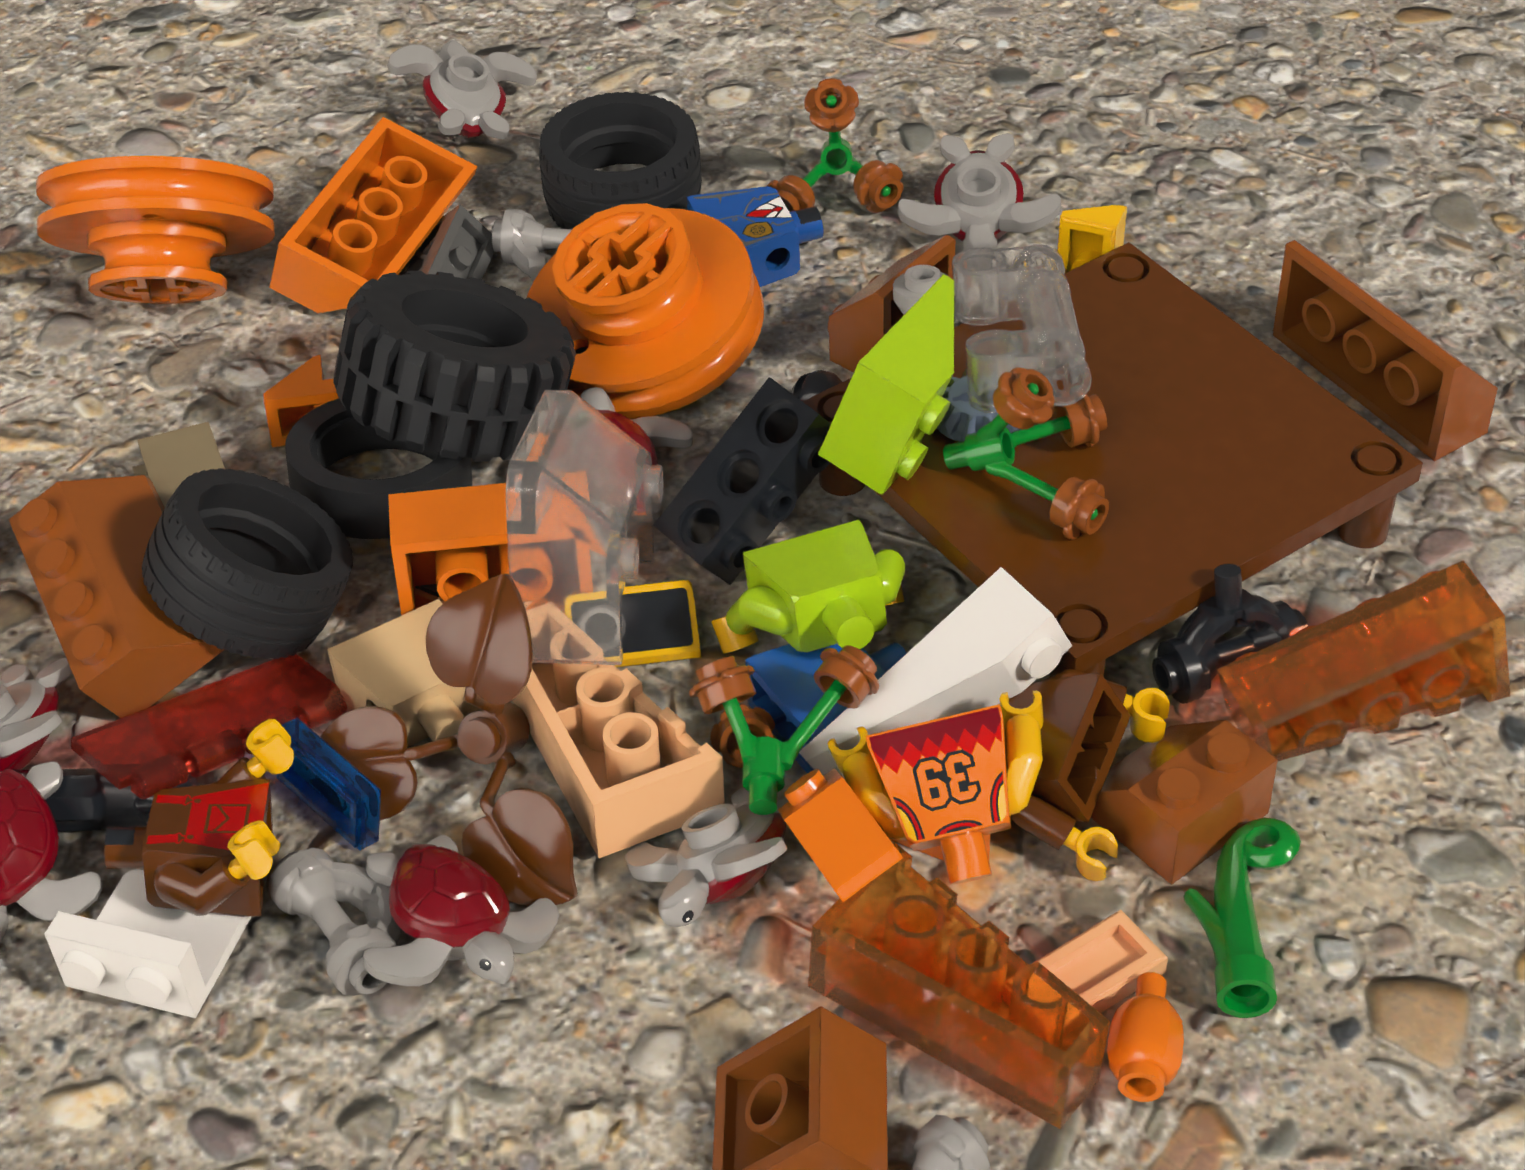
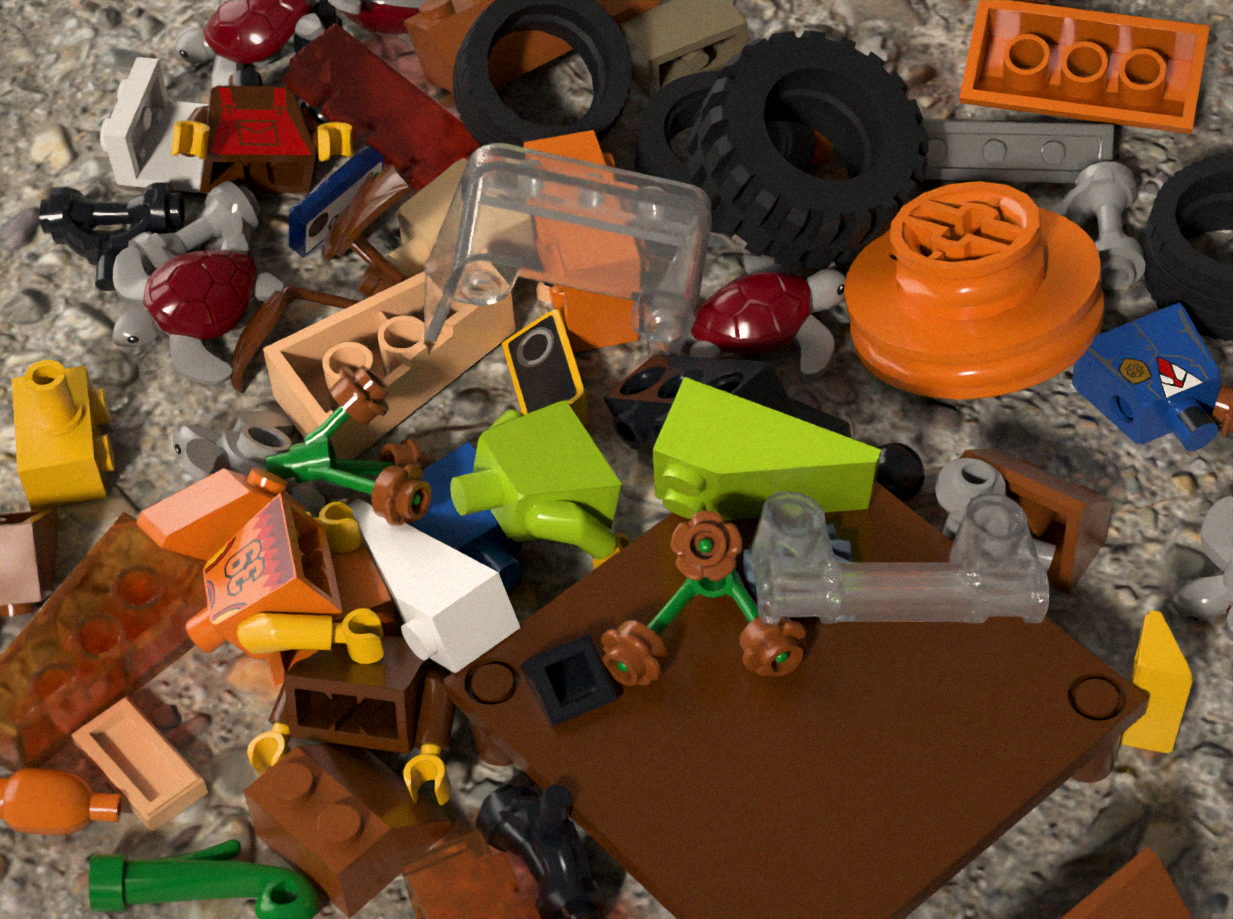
camera: 85 degrees right, 5 degrees up
(254, 1050) = (73, 216): none -> black piece
(627, 1043) = (60, 435): none -> yellow brick
(1089, 563) = (569, 680): none -> black slope

